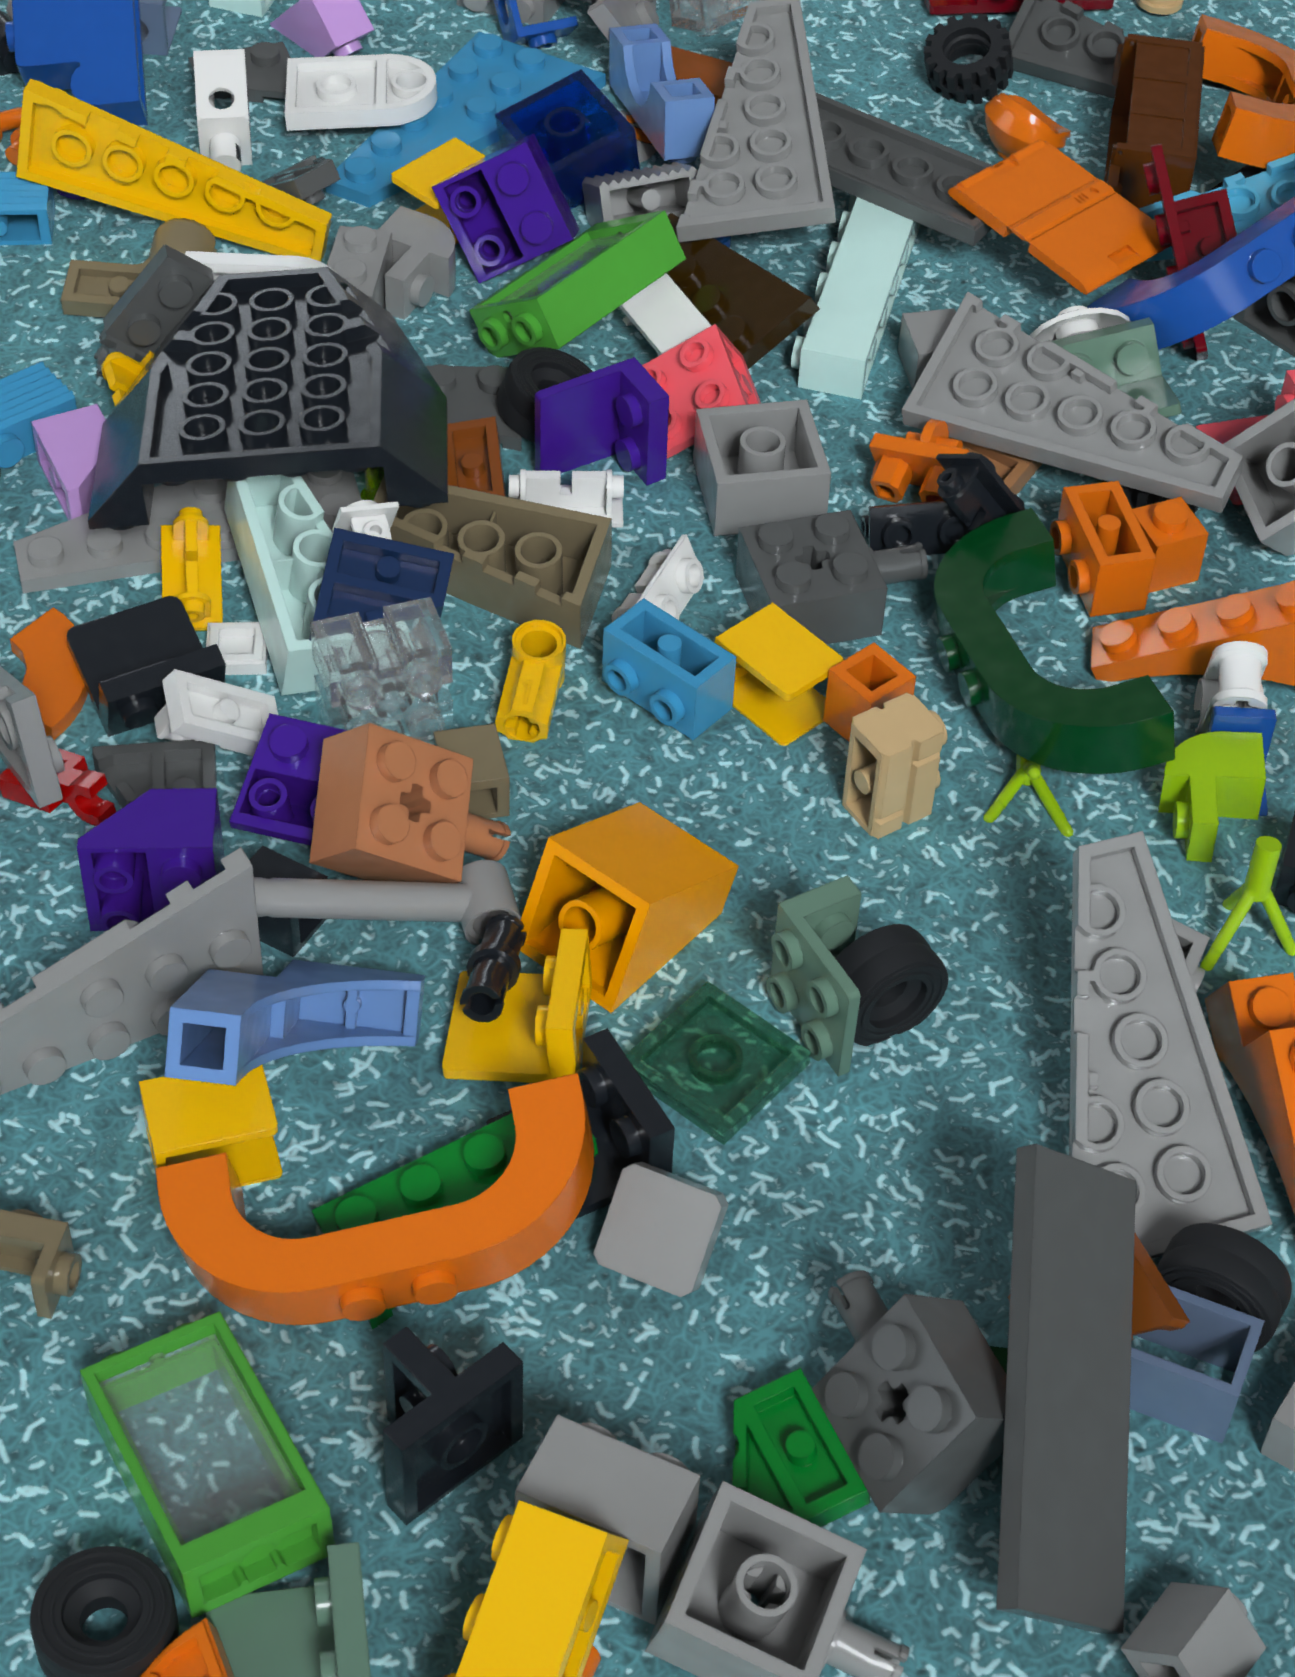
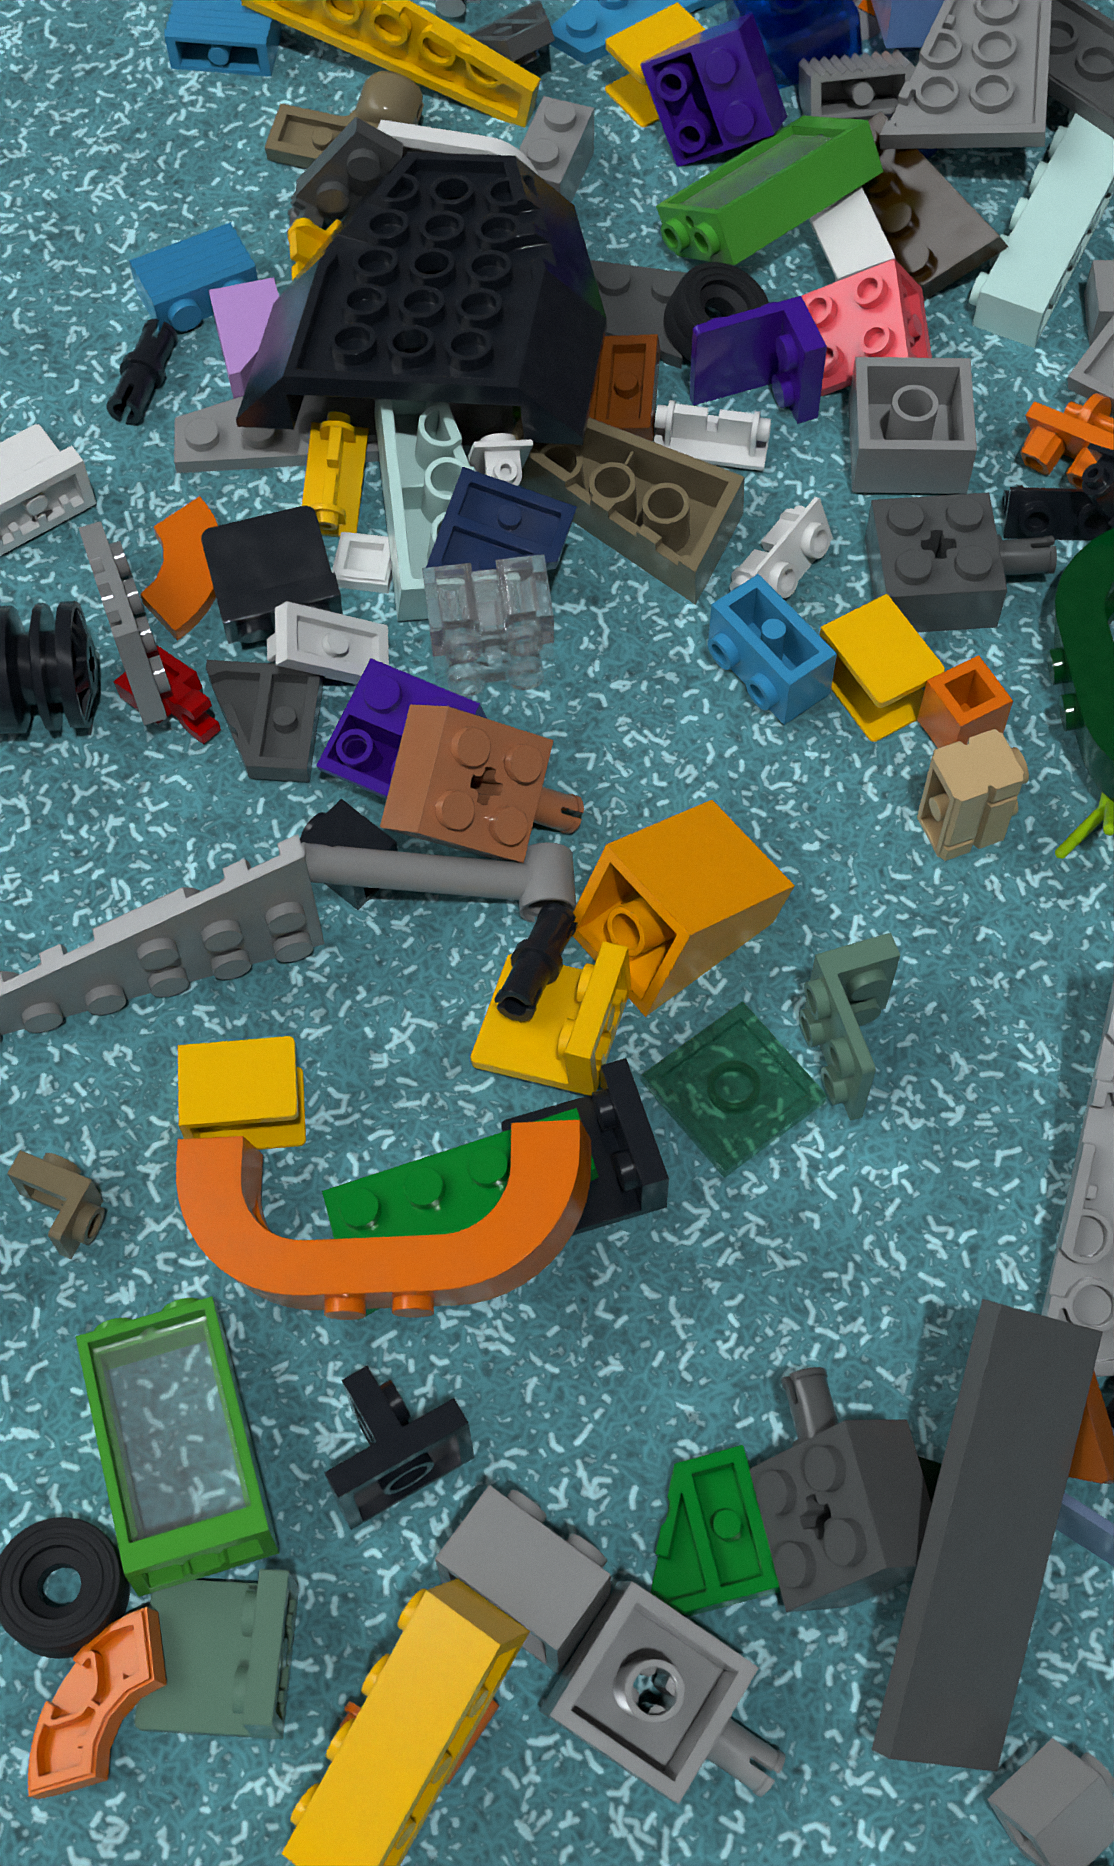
camera: 15 degrees right, 15 degrees up
(149, 852) = (237, 803): dark purple slope -> none
(246, 1020) = (293, 995): medium blue arch -> none
(421, 261) = (621, 139): light grey brick -> none
(489, 774) = (565, 719): dark tan brick -> none
(532, 681) = (637, 643): yellow piece -> none
(660, 1229) = (641, 1270): light grey piece -> none
(896, 979) = (916, 1037): black tyre -> none

